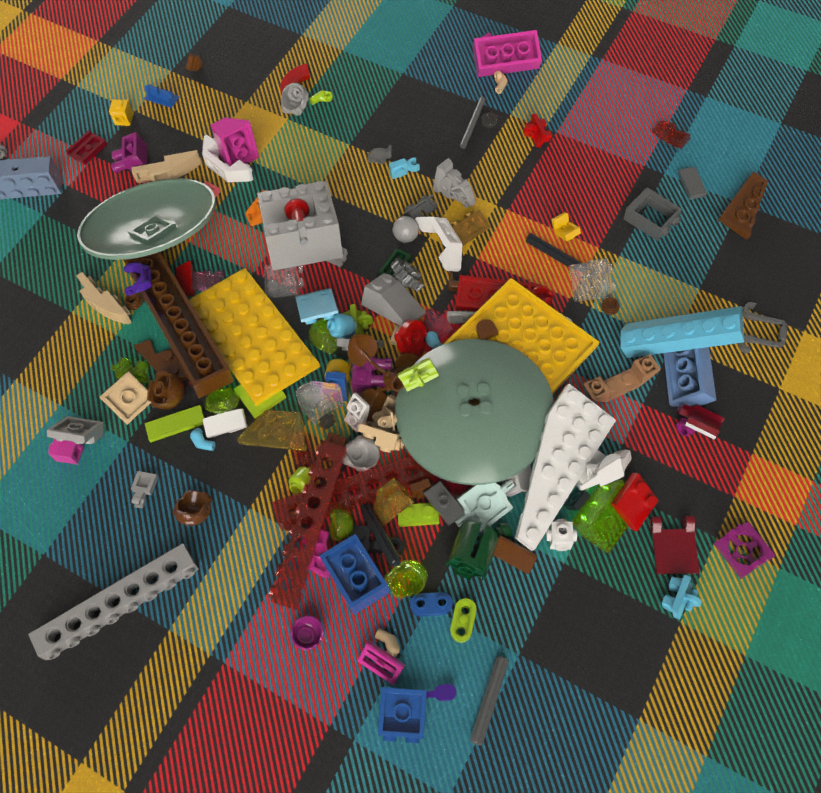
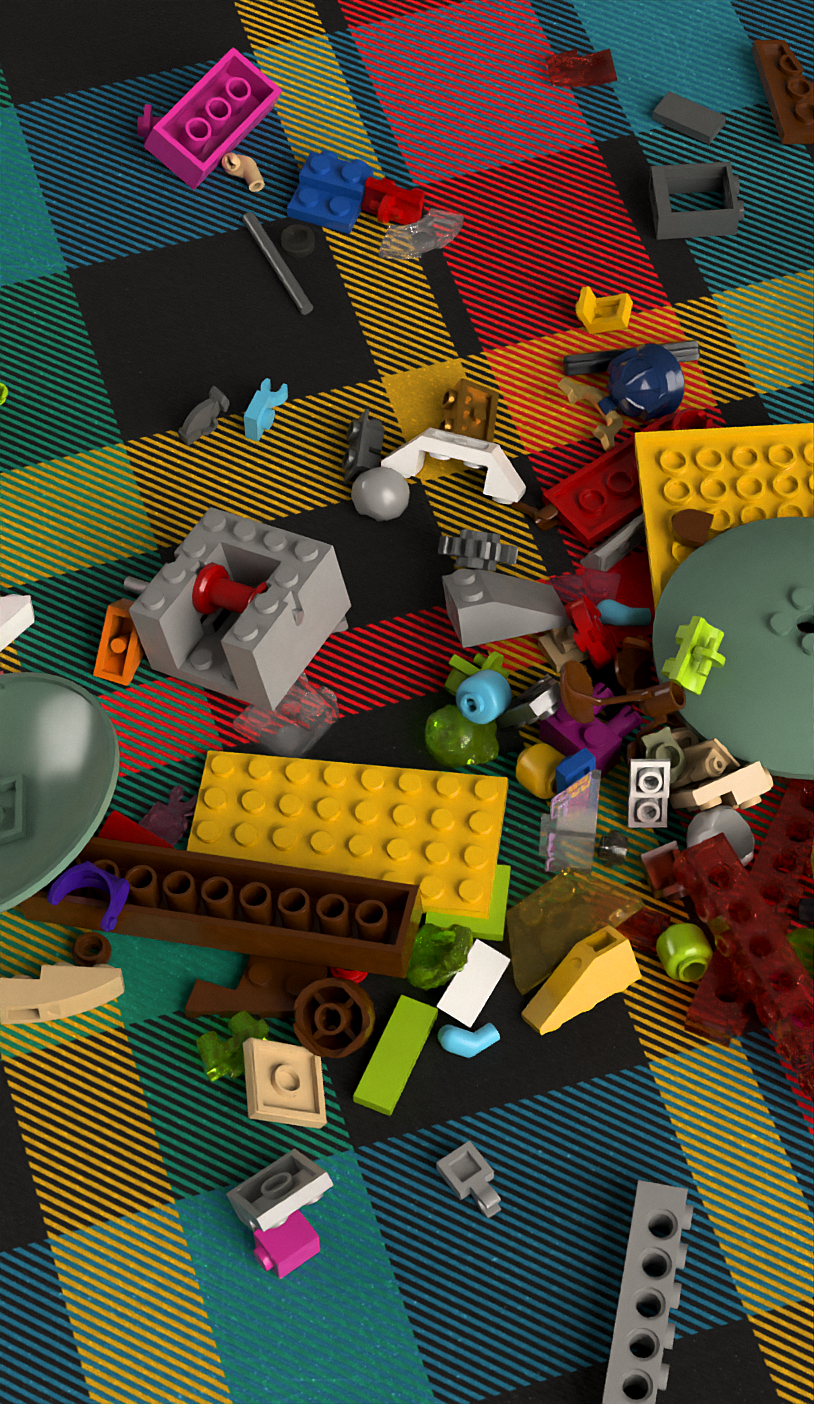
camera: 50 degrees left, 5 degrees down
(192, 507) = (581, 1130): reddish brown hair -> none
(262, 457) = (585, 977): none -> yellow slope
(316, 305) = (410, 701): medium azure slope -> none
(376, 403) = (663, 746): none -> olive animal
(408, 257) = (432, 583): dark green tile -> none
(452, 184) = (380, 373): light grey piece -> none
(519, 110) = (330, 191): none -> blue plate
(534, 151) = (428, 233): none -> clear tile
(541, 264) = (641, 384): none -> dark blue helmet
(592, 280) = (725, 353): clear plate -> none
(610, 306) = (785, 370): reddish brown plate -> none

